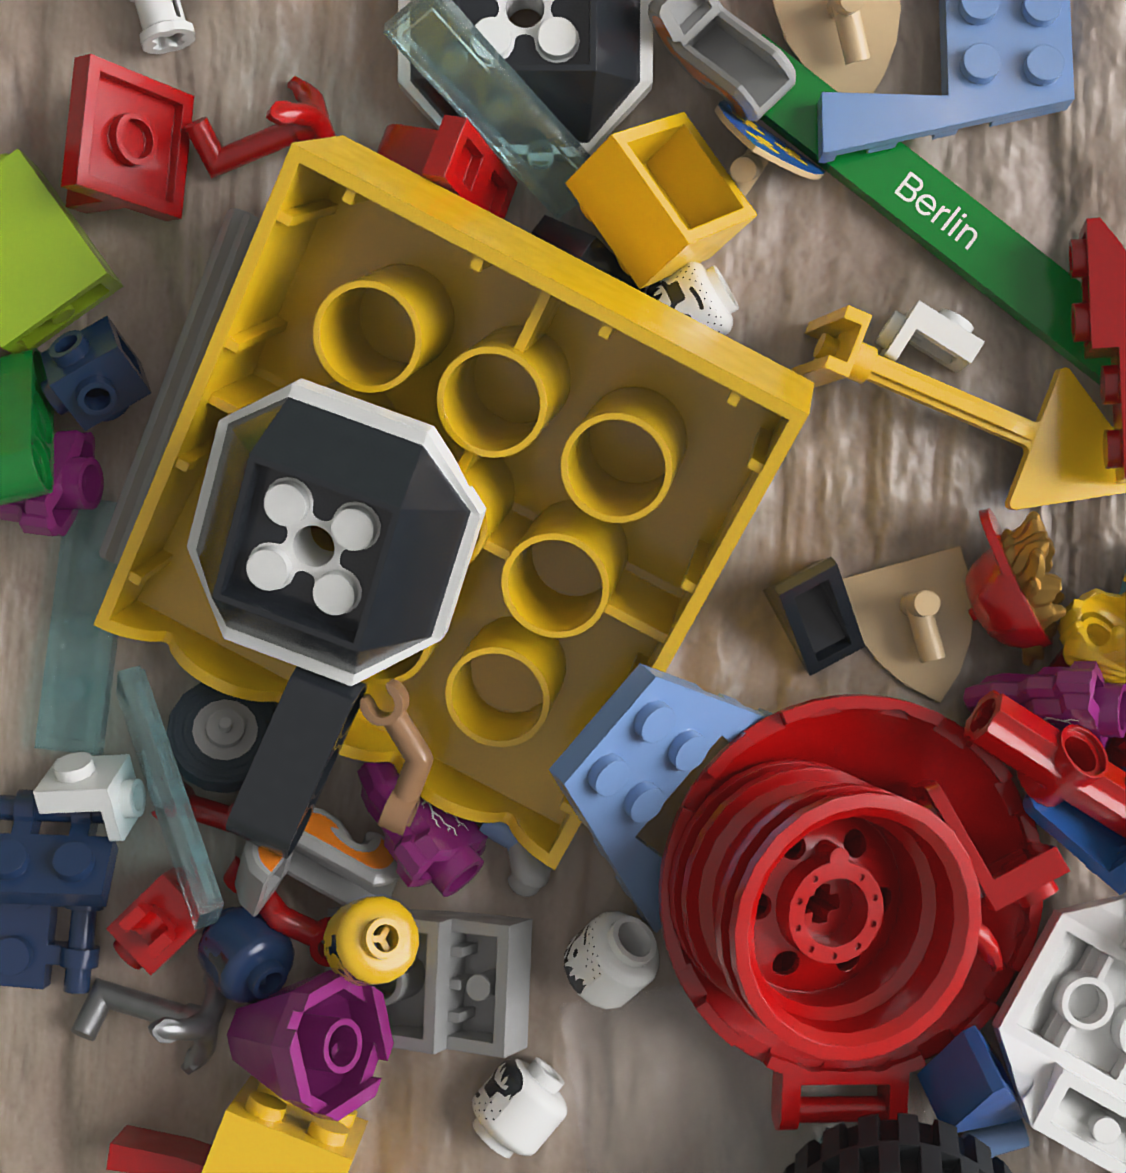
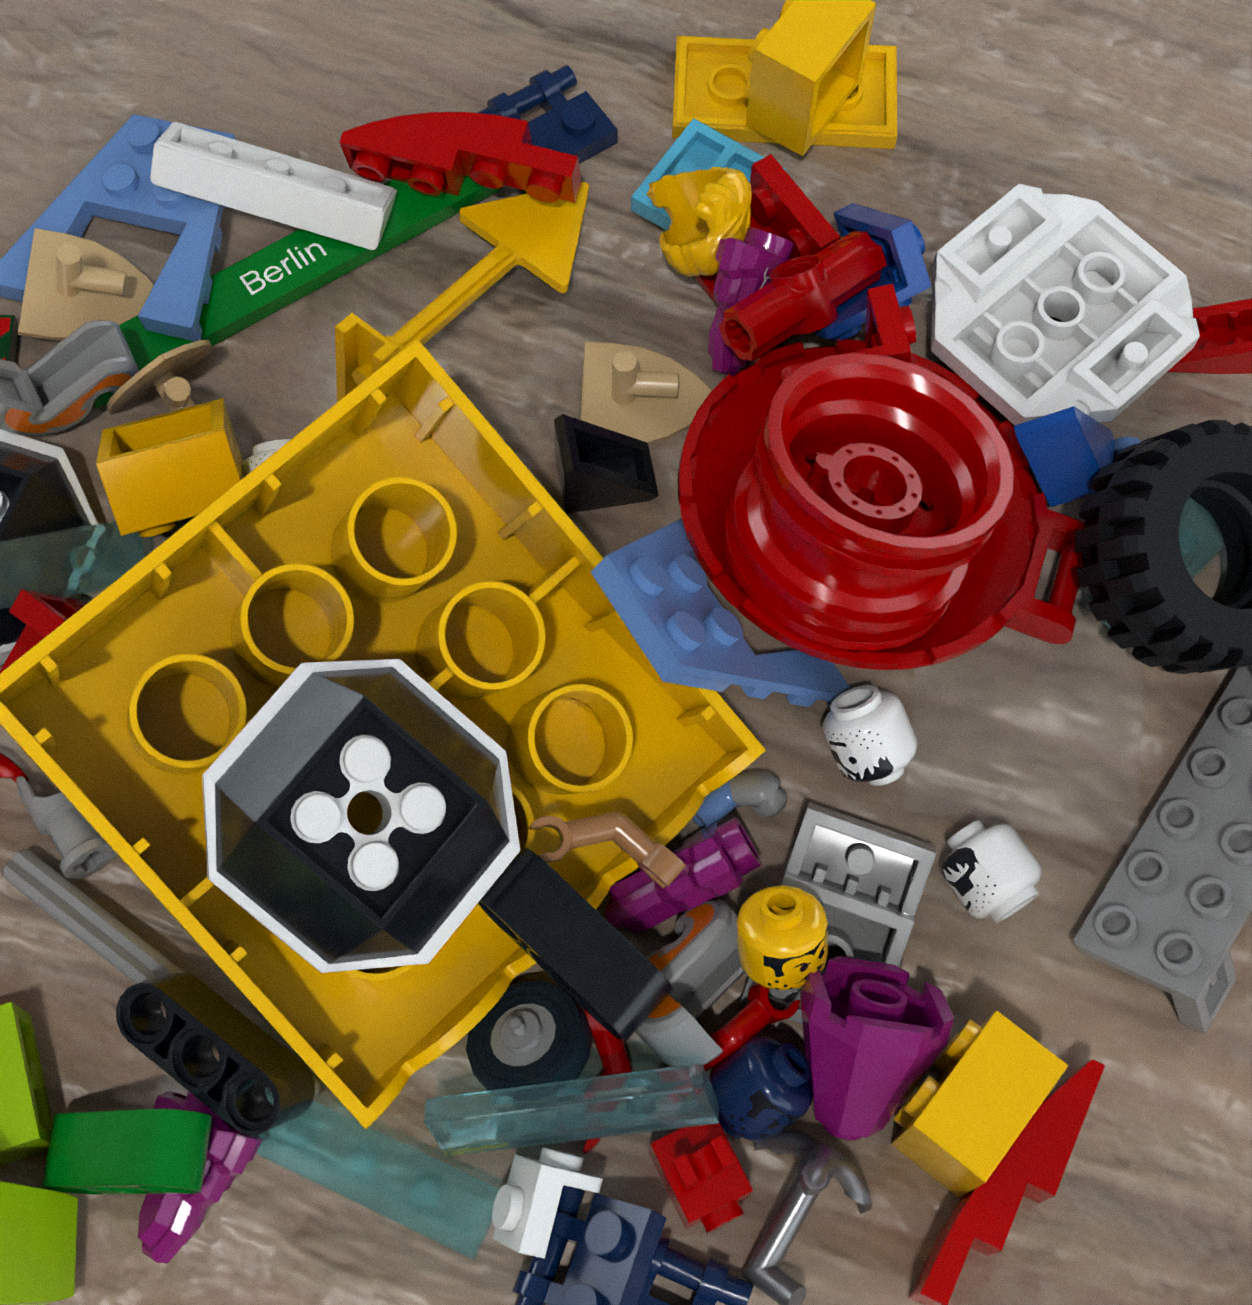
camera: 75 degrees left, 20 degrees down
(93, 374) = (99, 1063): dark blue brick -> none
(110, 470) = (246, 1053): none -> black beam
(939, 335) = (394, 295): white bracket -> none
(1013, 586) = (634, 294): hair -> none
(1022, 164) = (272, 185): none -> white slope

